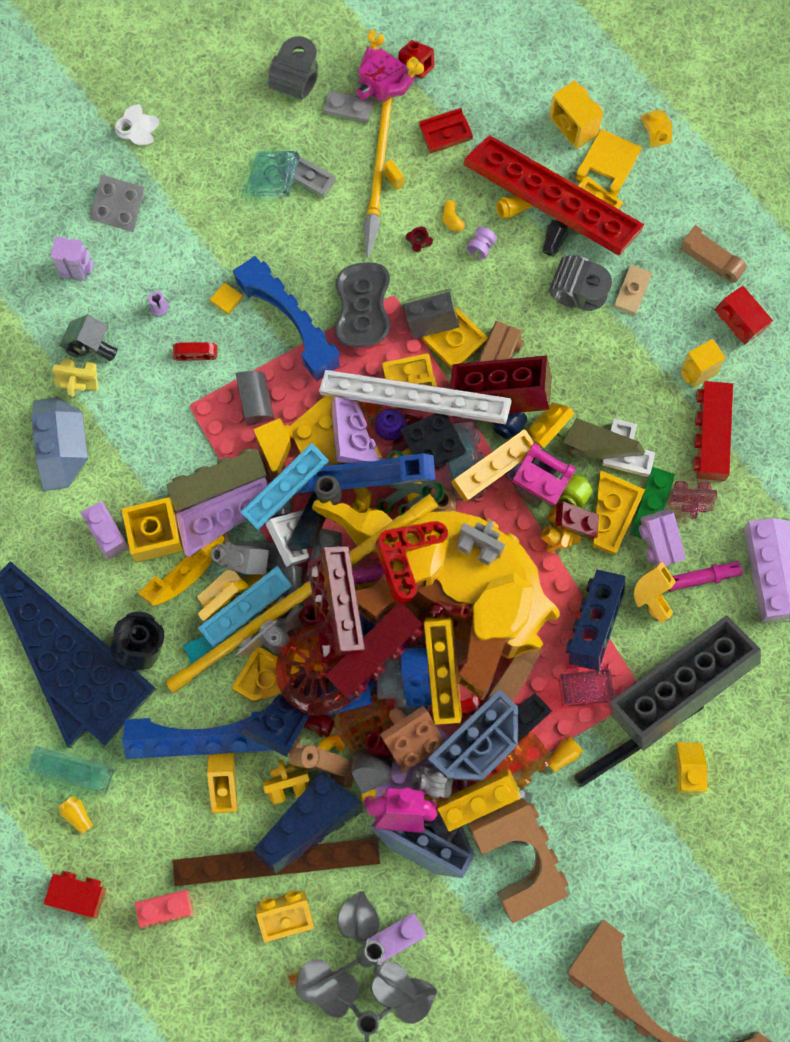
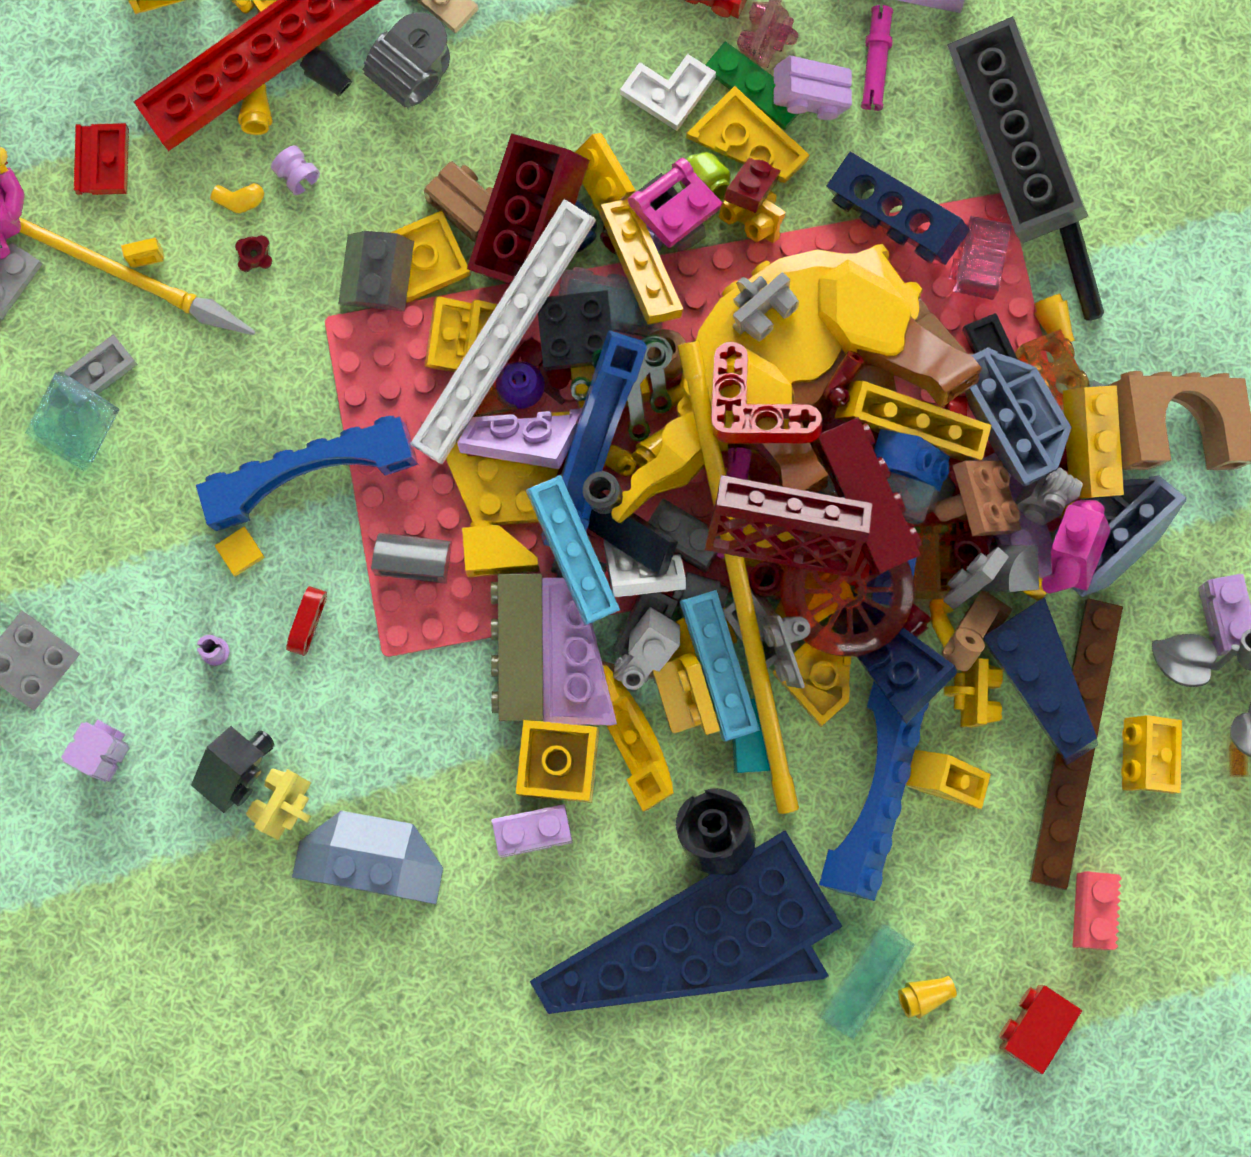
camera: 70 degrees left, 5 degrees up
(355, 747) = (979, 574): none -> light grey plate
(363, 315) = (349, 366): dark grey plate -> none
(599, 443) = (648, 123): olive slope -> none
(650, 590) = (873, 123): yellow brick -> none
(691, 768) = (1126, 168): yellow slope -> none

